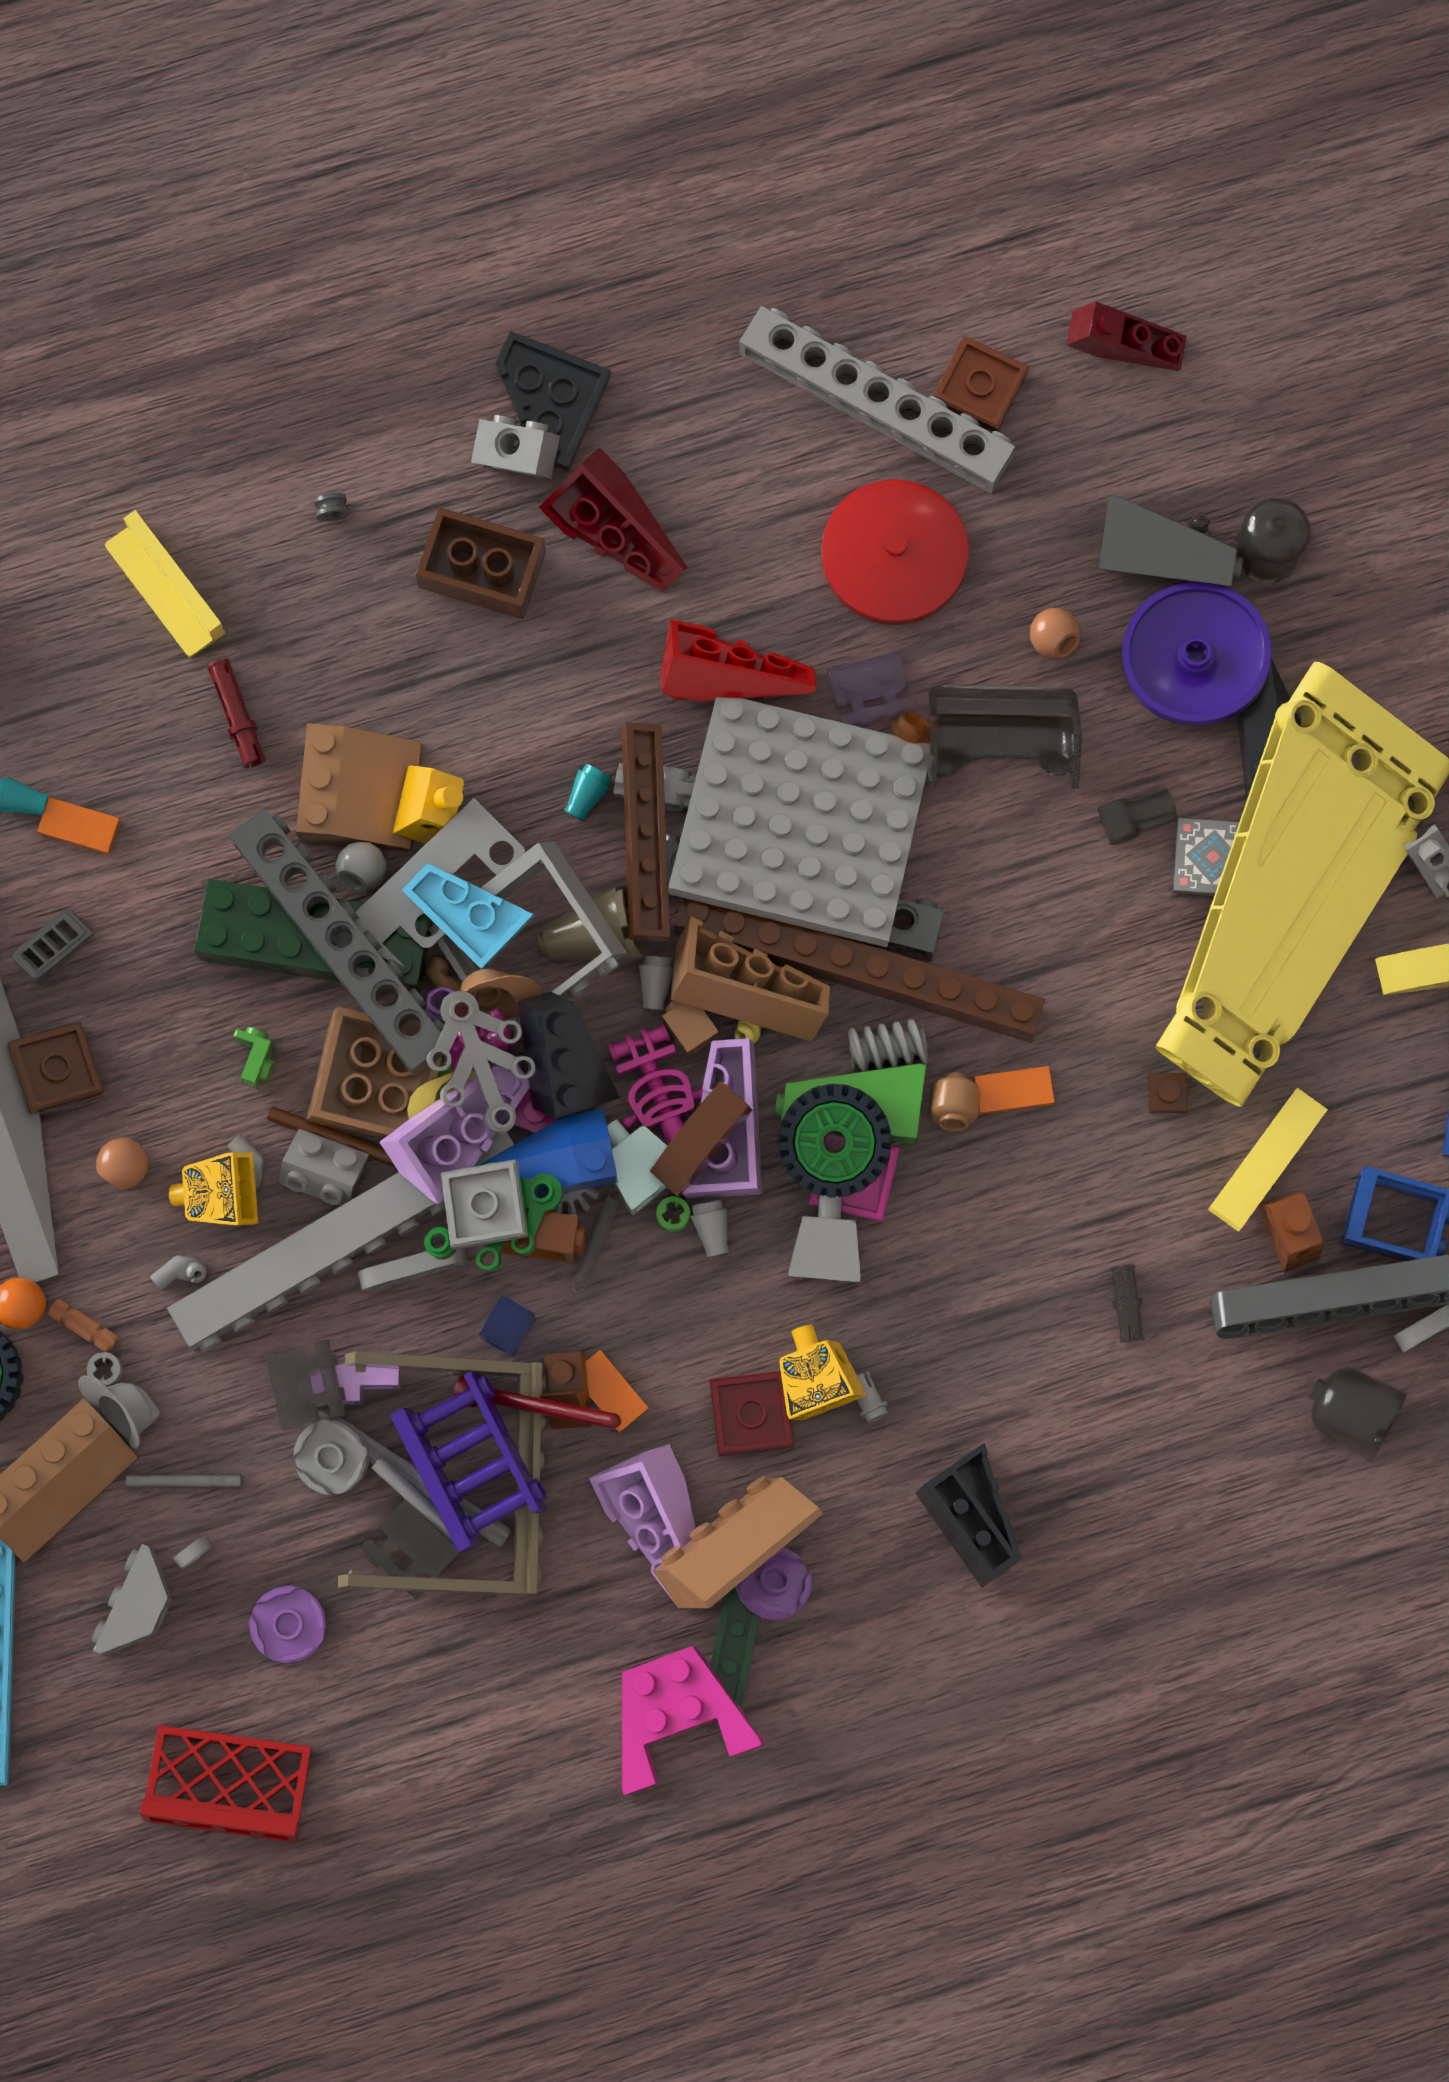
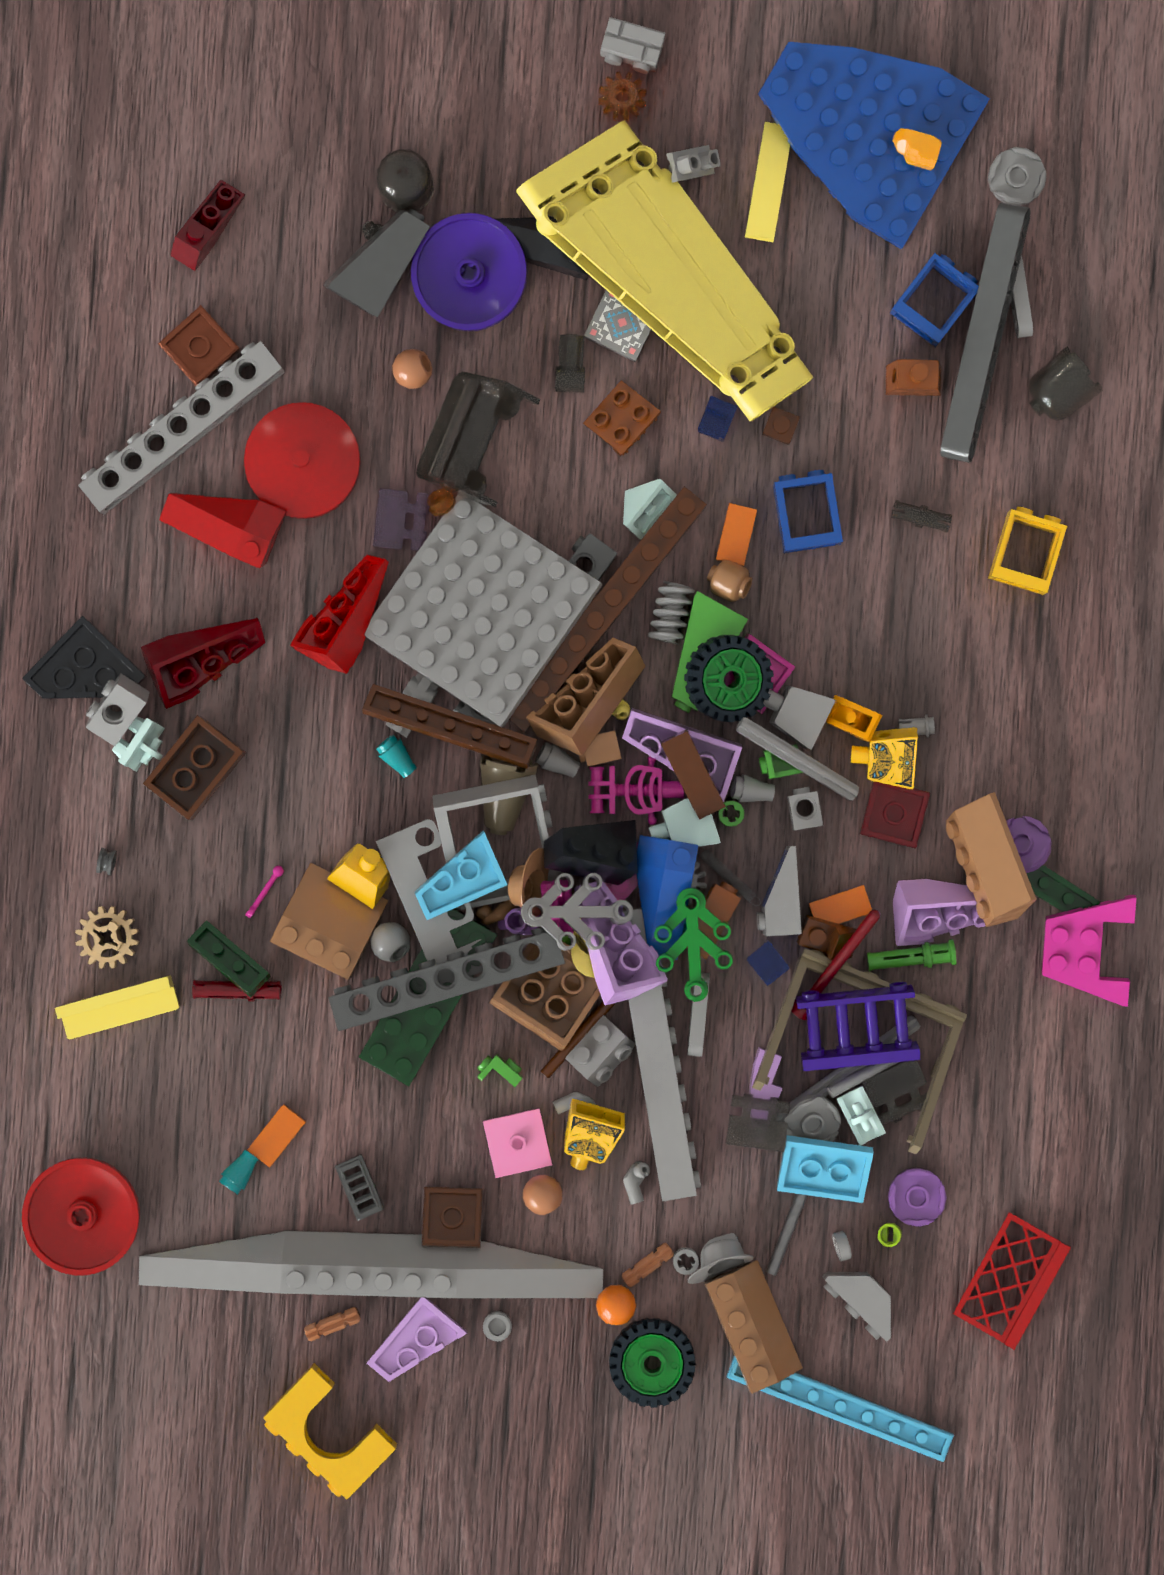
camera: 70 degrees left, 10 degrees up
(175, 1112) = (517, 1142): none -> bright pink plate
(227, 1600) = (883, 1235): none -> lime hinge
(228, 536) = (115, 925): none -> tan gear
(269, 687) = (228, 958): none -> dark green plate
(279, 1493) = (825, 1169): none -> medium azure plate
(362, 1512) = (860, 1115): none -> light aqua hips
(395, 708) = (277, 872): none -> dark pink hinge
(484, 494) = (142, 746): none -> light aqua hips
(484, 1204) = (684, 948): light grey tile -> none
(590, 1310) = (781, 903): none -> light grey slope
(591, 1517) = (931, 955): none -> bright green pin
(703, 1313) = (814, 819): none -> light grey brick
(759, 1248) = (776, 767): none -> bright green bracket
(770, 1264) = (797, 759): none -> light grey axle
(784, 497) = (228, 524): none -> red wedge
(846, 1311) = (853, 718): none -> light orange slope
(971, 1515) = (1029, 687): black wedge -> none
(1005, 965) = (645, 505): none -> light aqua slope
(1044, 1185) = (812, 541): none -> blue window
(1098, 901) = (622, 418): none -> dark orange hinge
(1098, 1449) = (1018, 579): none -> yellow window
(1144, 1013) = (717, 418): none -> clear blue panel
(1267, 1159) = (858, 374): light yellow slope -> none

